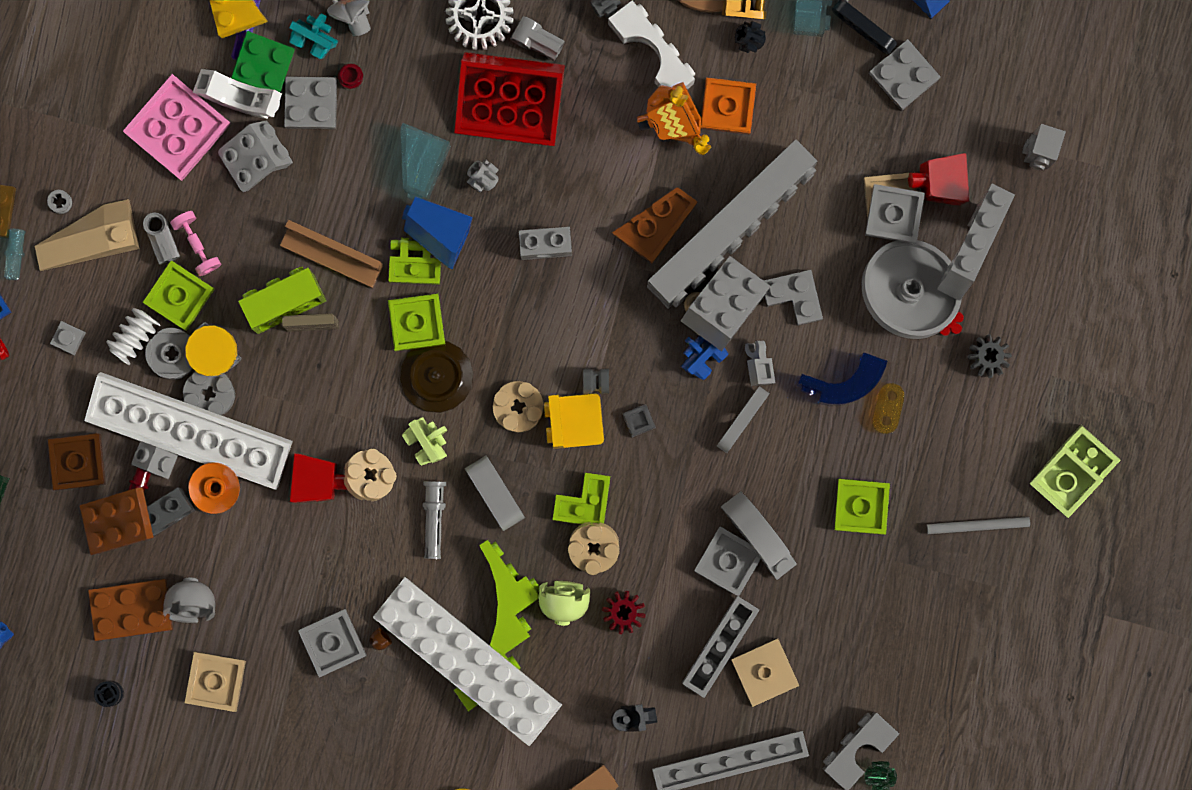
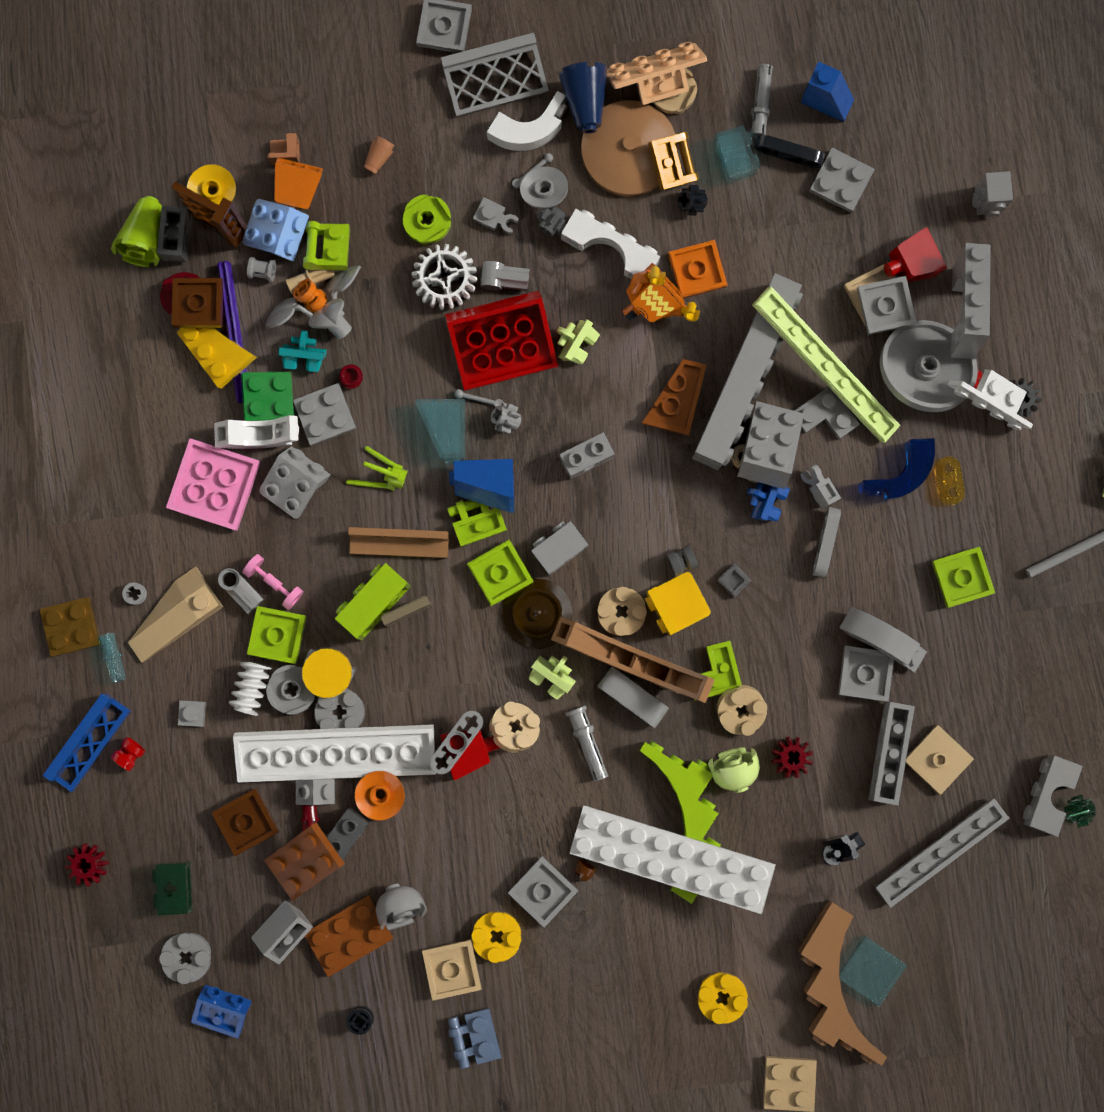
camera: 25 degrees left, 0 degrees up
(68, 579) = (282, 932): none -> light grey brick
(218, 756) = (482, 1037): none -> sand blue plate
(257, 661) = (511, 937): none -> yellow plate
(305, 477) = (450, 761): none -> light grey beam
(352, 188) = (394, 476): none -> lime plant
(447, 134) = (459, 394): none -> light grey hinge
(482, 321) = (559, 547): none -> light grey brick
(505, 455) = (632, 660): none -> medium nougat arch
(591, 122) = (581, 333): none -> yellowish green hips
(810, 247) = (826, 364): none -> yellowish green tile
(964, 343) = (997, 396): none -> white bracket

